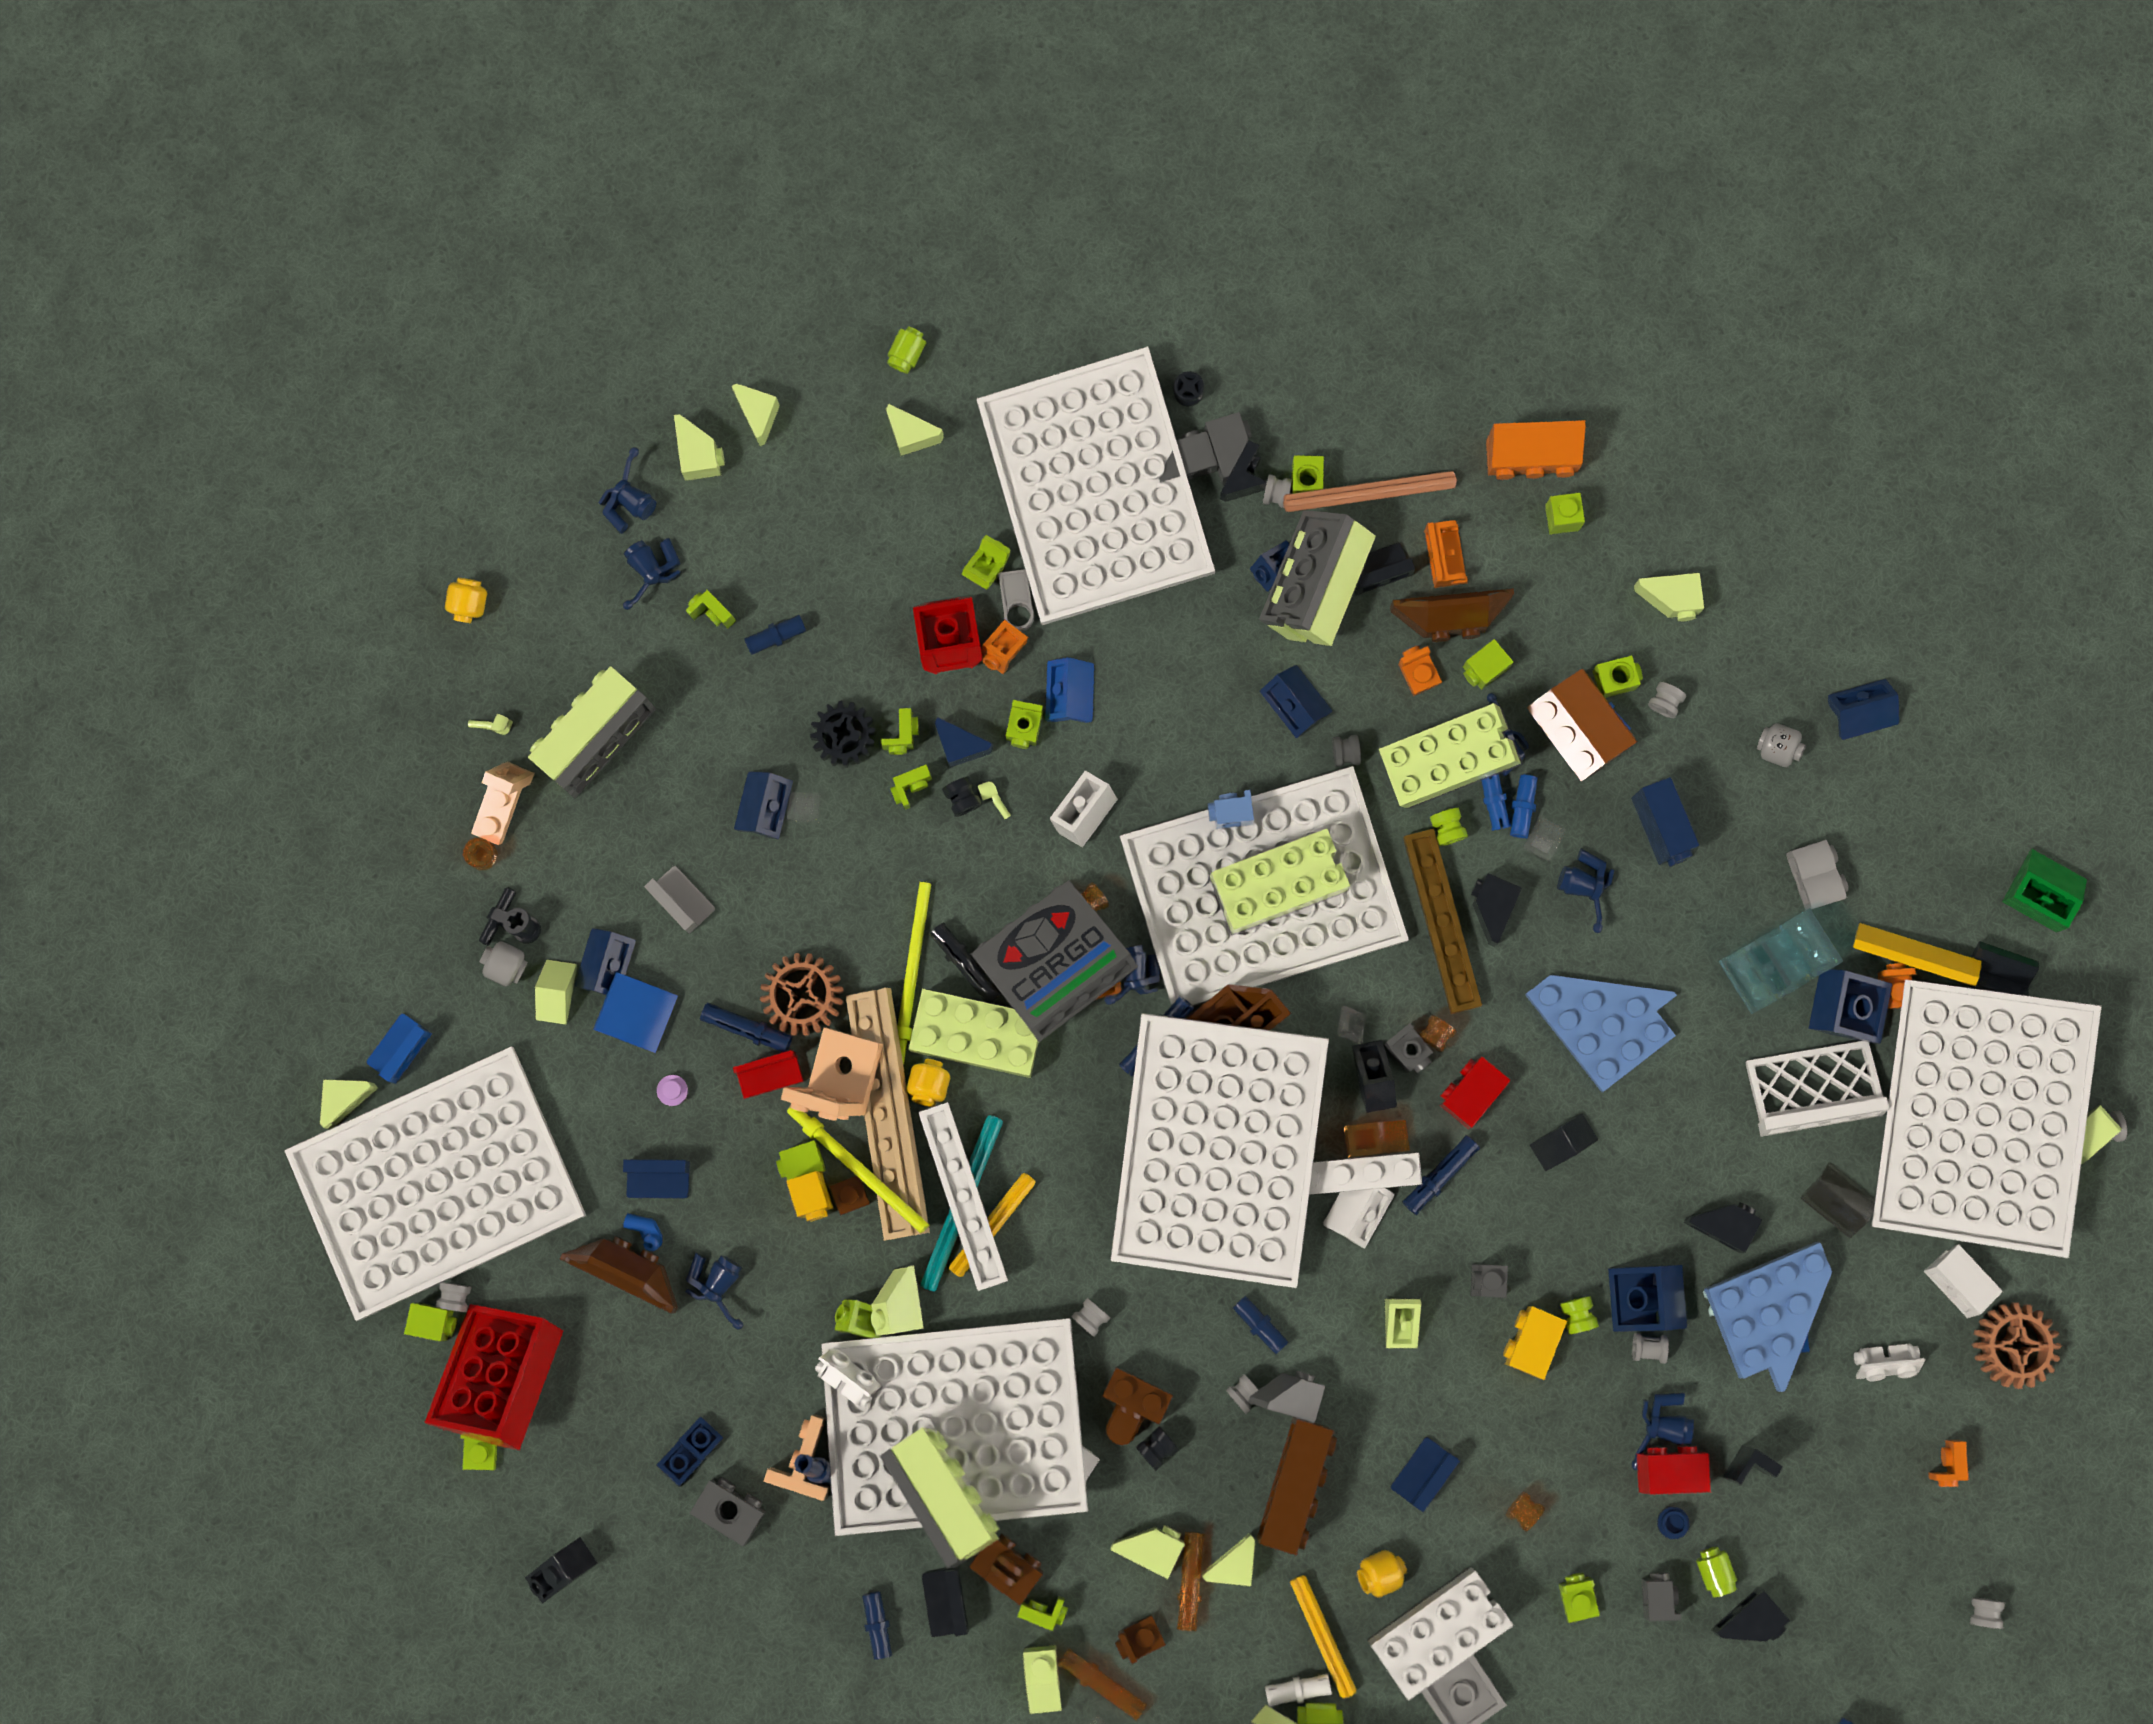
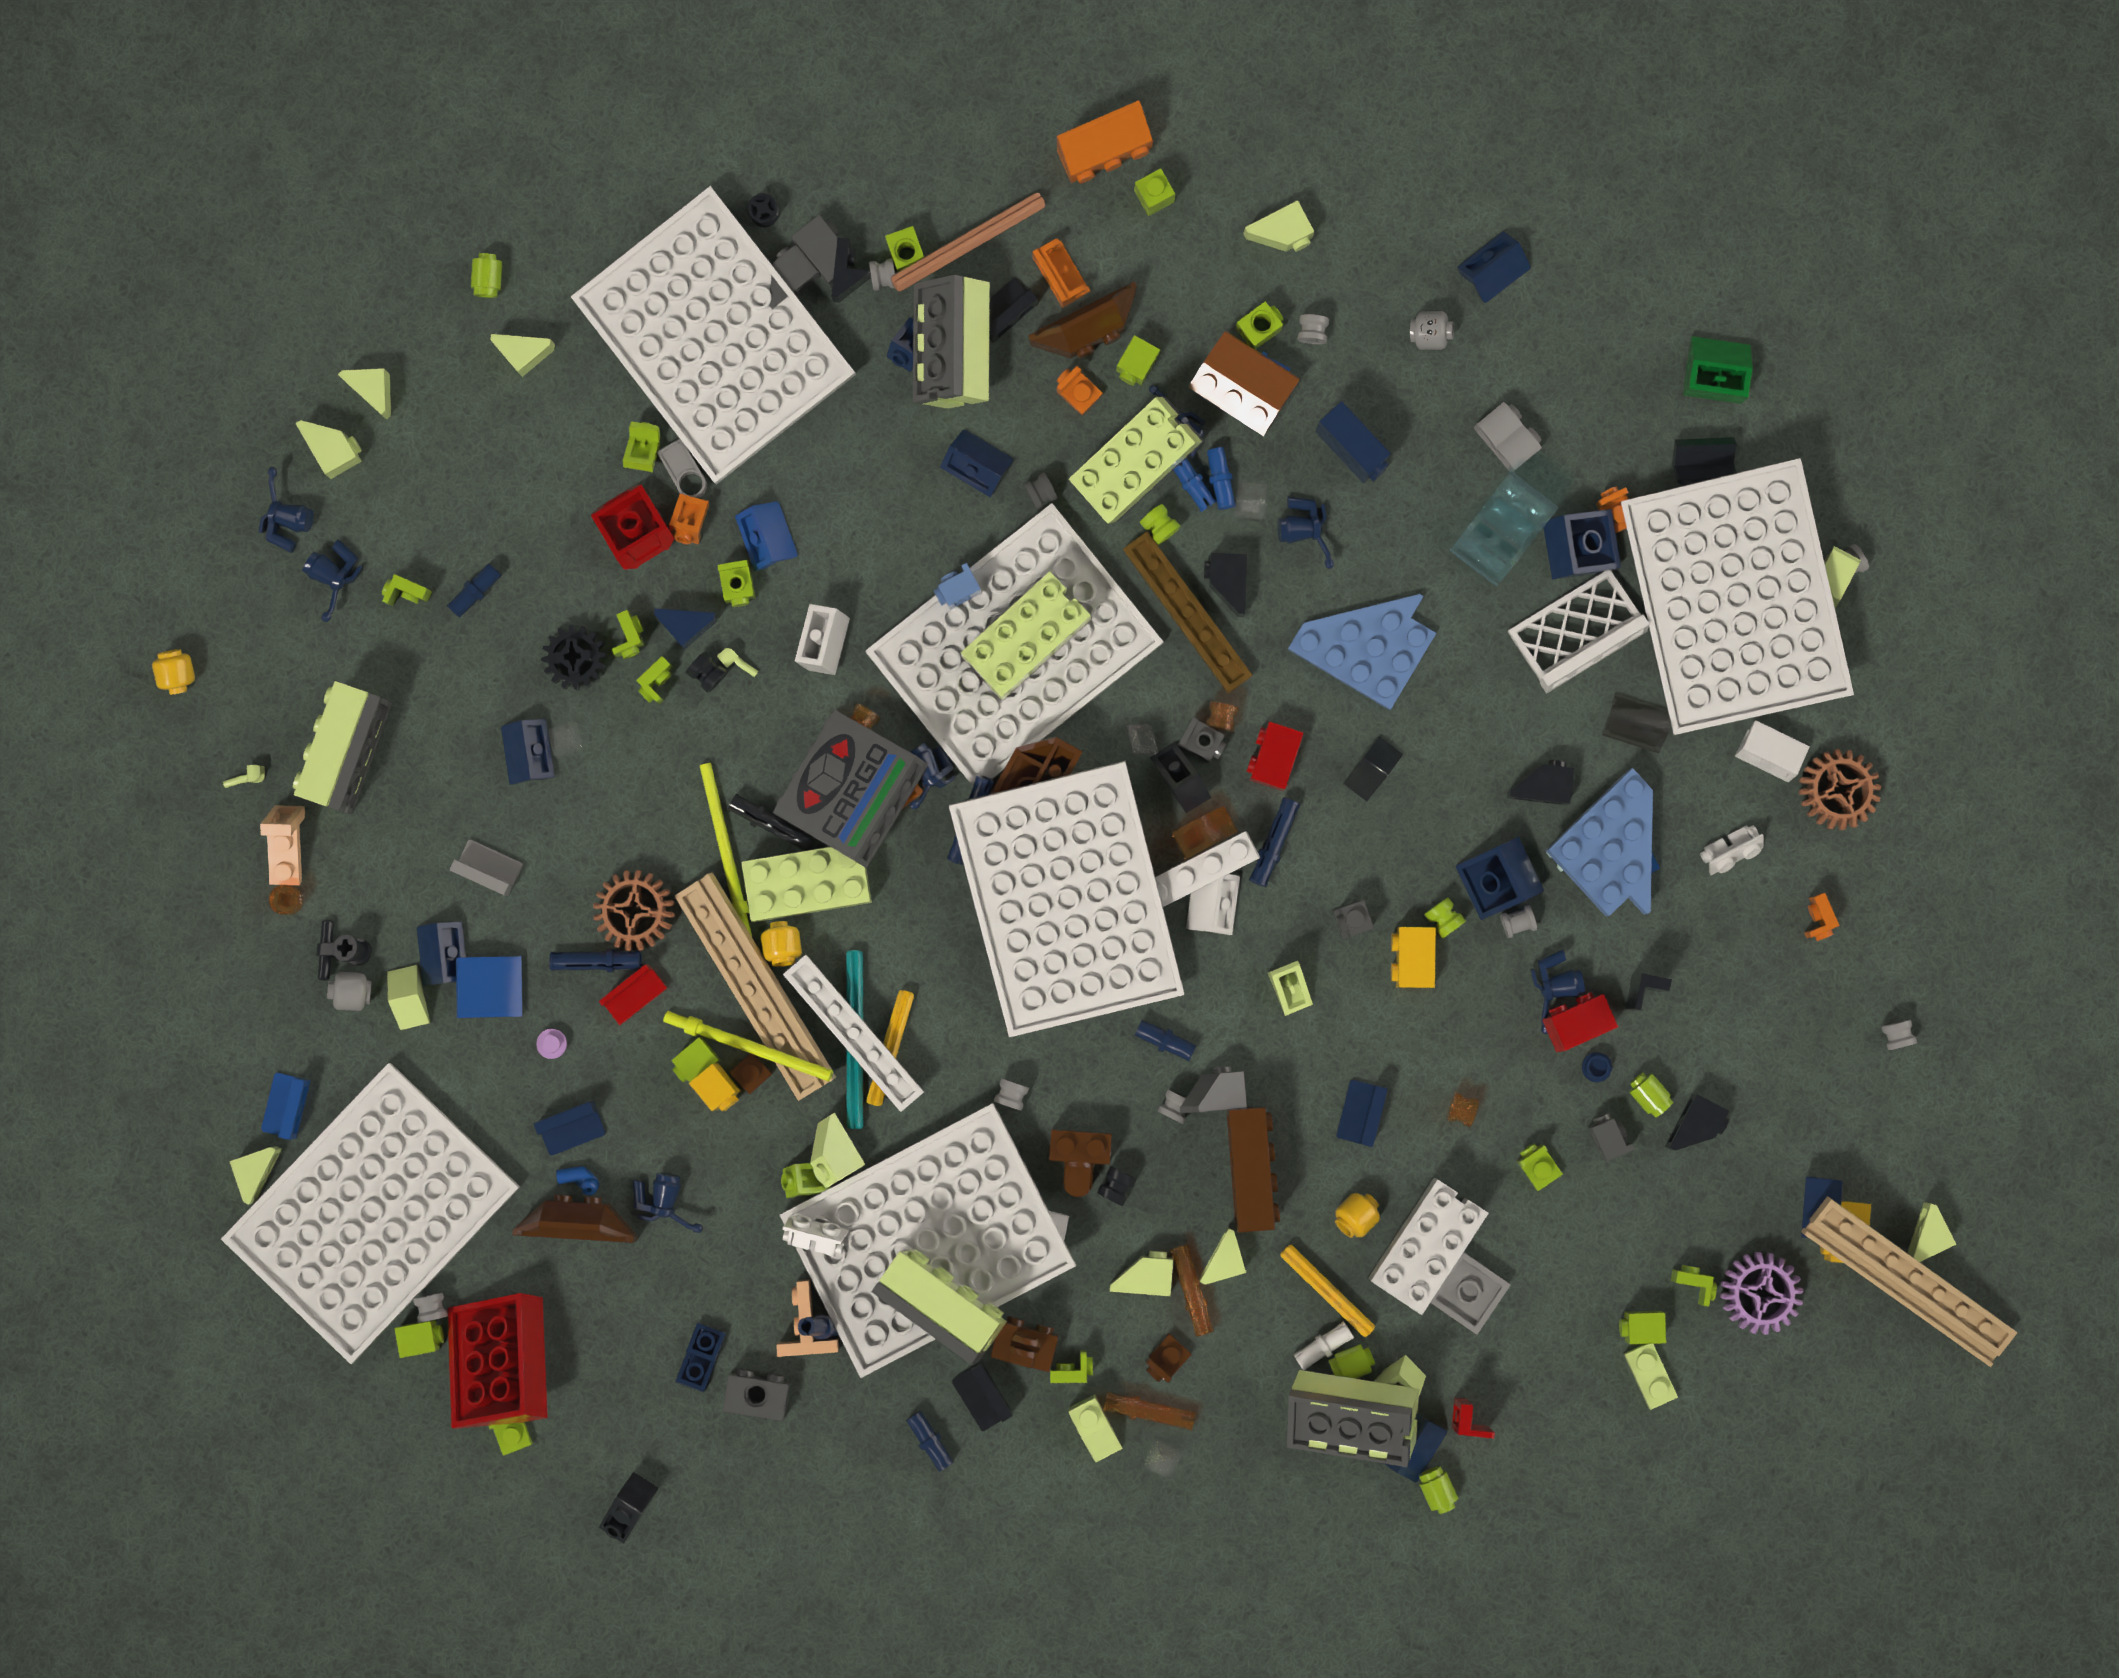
camera: 25 degrees left, 5 degrees up
(829, 1089) = (693, 985): light nougat bracket -> none
(1917, 954) = (1624, 473): yellow tile -> none

